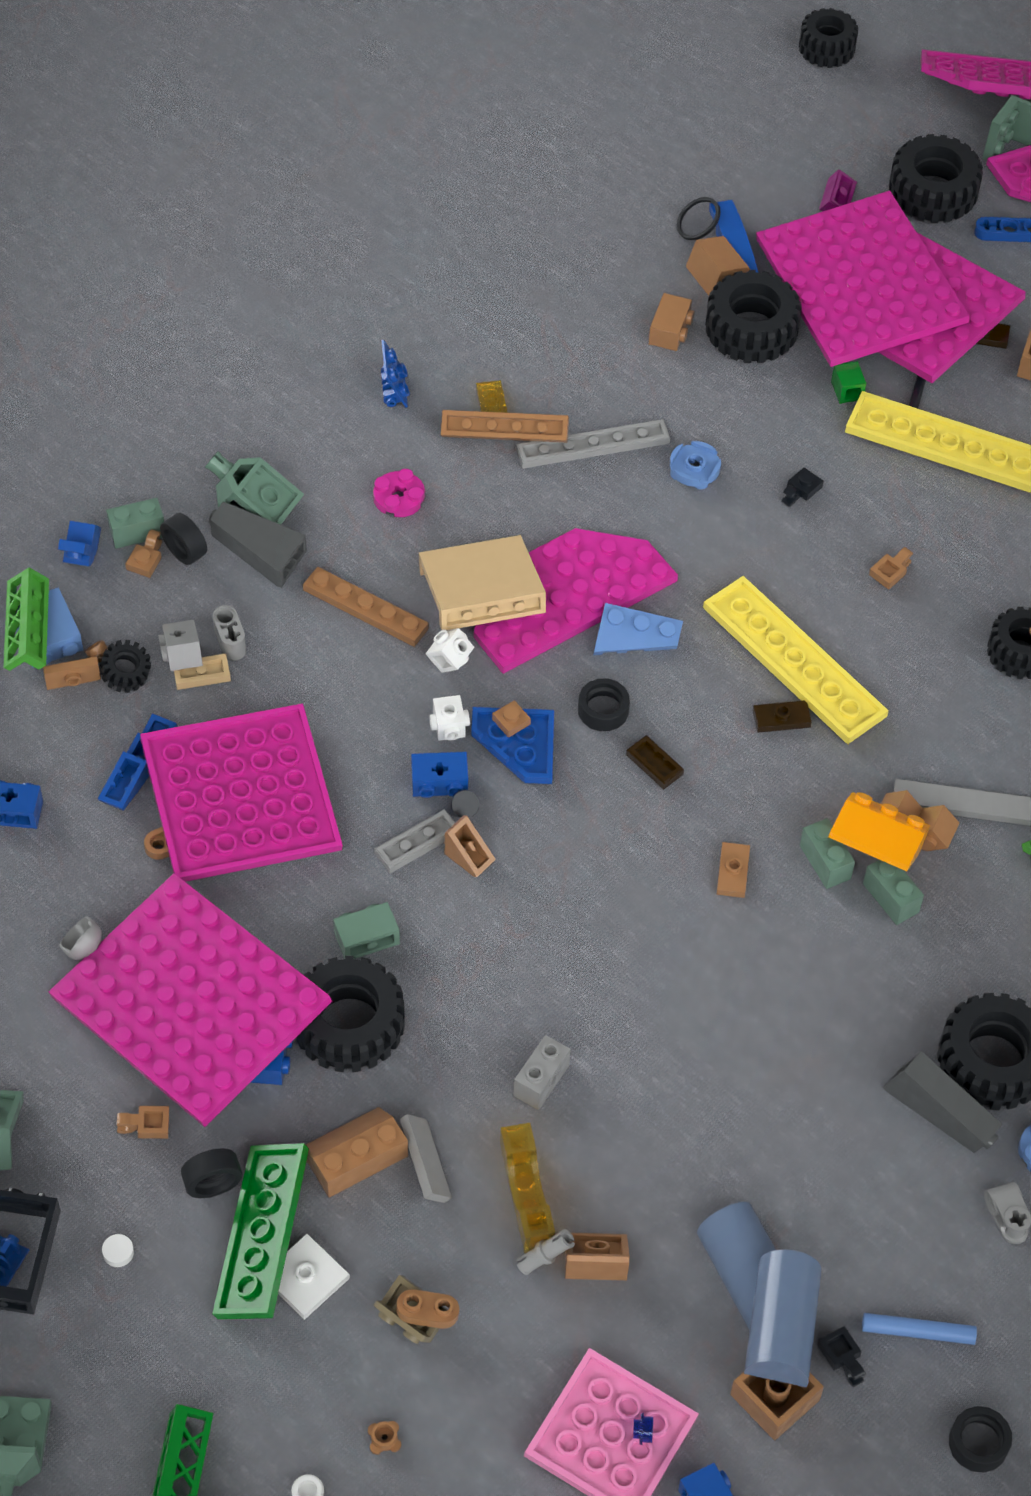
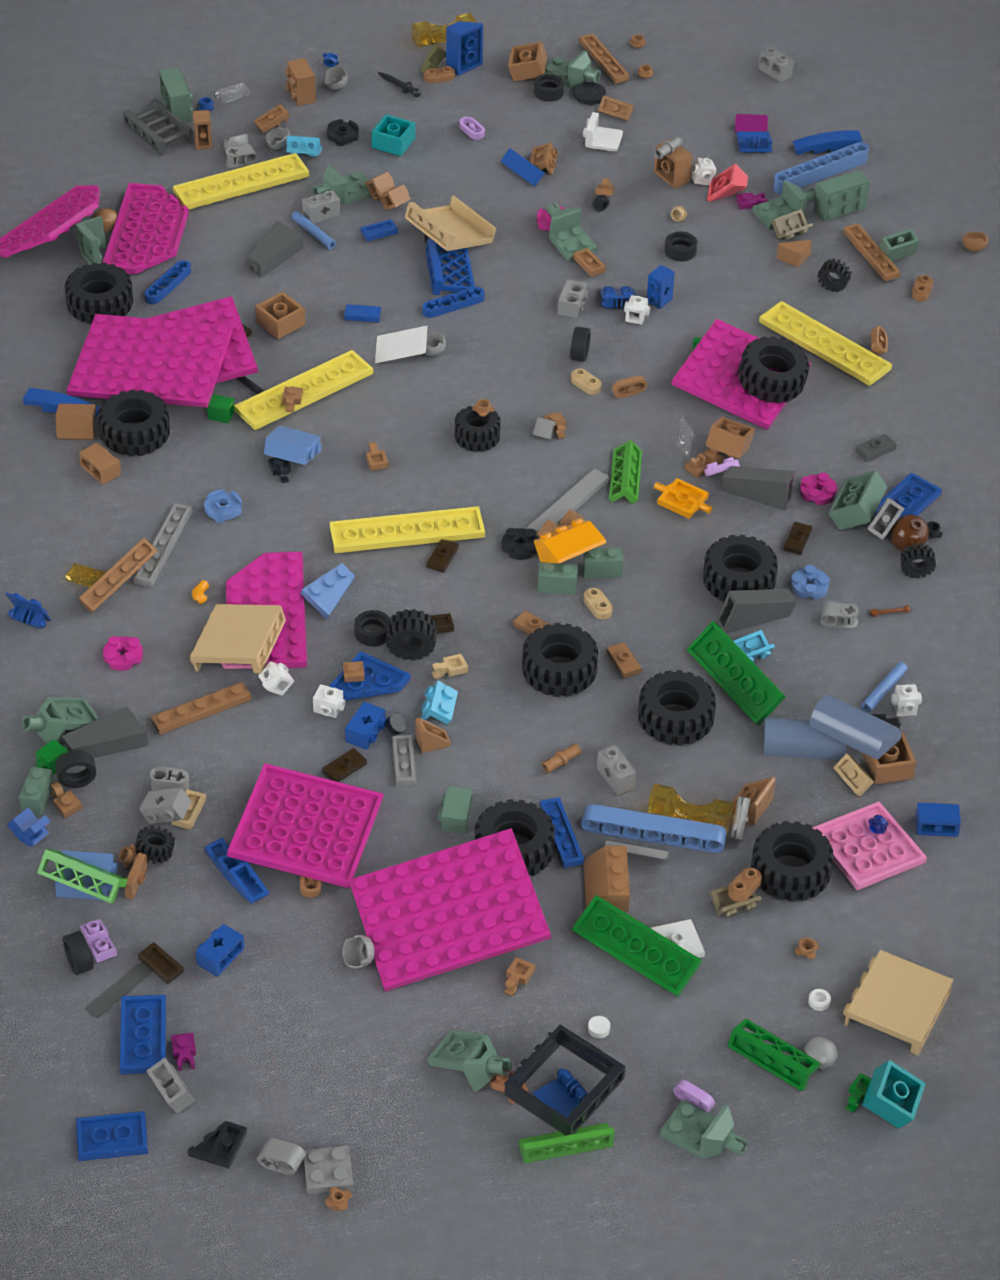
camera: 60 degrees left, 10 degrees down
(58, 1410) = (687, 1091): none -> lavender beam
(197, 508) = (49, 754): none -> green brick
(211, 1173) = (583, 951): black tyre -> none
(368, 786) = (344, 765): none -> dark brown plate
(403, 1061) = (565, 840): none -> blue plate
(475, 1163) = (654, 828): none -> medium blue beam
(515, 1311) = (797, 841): none -> black tyre
(526, 1003) = (561, 758): none -> medium nougat pin
(530, 833) = (439, 702): none -> medium azure bracket
(542, 511) = (197, 592): none -> light orange arm
(599, 815) = (452, 665): none -> tan plate
(604, 744) = (411, 634): none -> black tyre
(688, 890) = (560, 677): none -> black tyre
(698, 1057) = (676, 726): none -> black tyre
(709, 229) = (40, 419): black piece -> none
(723, 1360) = (853, 774): none -> tan plate
(746, 994) = (623, 660): none -> medium nougat plate
(803, 1132) = (736, 673): none -> green plate
(826, 917) = (598, 603): none -> tan plate
(837, 476) = (292, 445): none -> medium blue brick
(838, 191) = (62, 344): magenta slope -> none
(865, 772) = (519, 535): none -> black plate
(867, 1128) = (755, 645): none -> medium azure bracket
(907, 1366) = (906, 700): none -> white brick
(918, 435) = (292, 396): none -> medium nougat plate
(990, 1418) = (966, 682): black tyre -> none

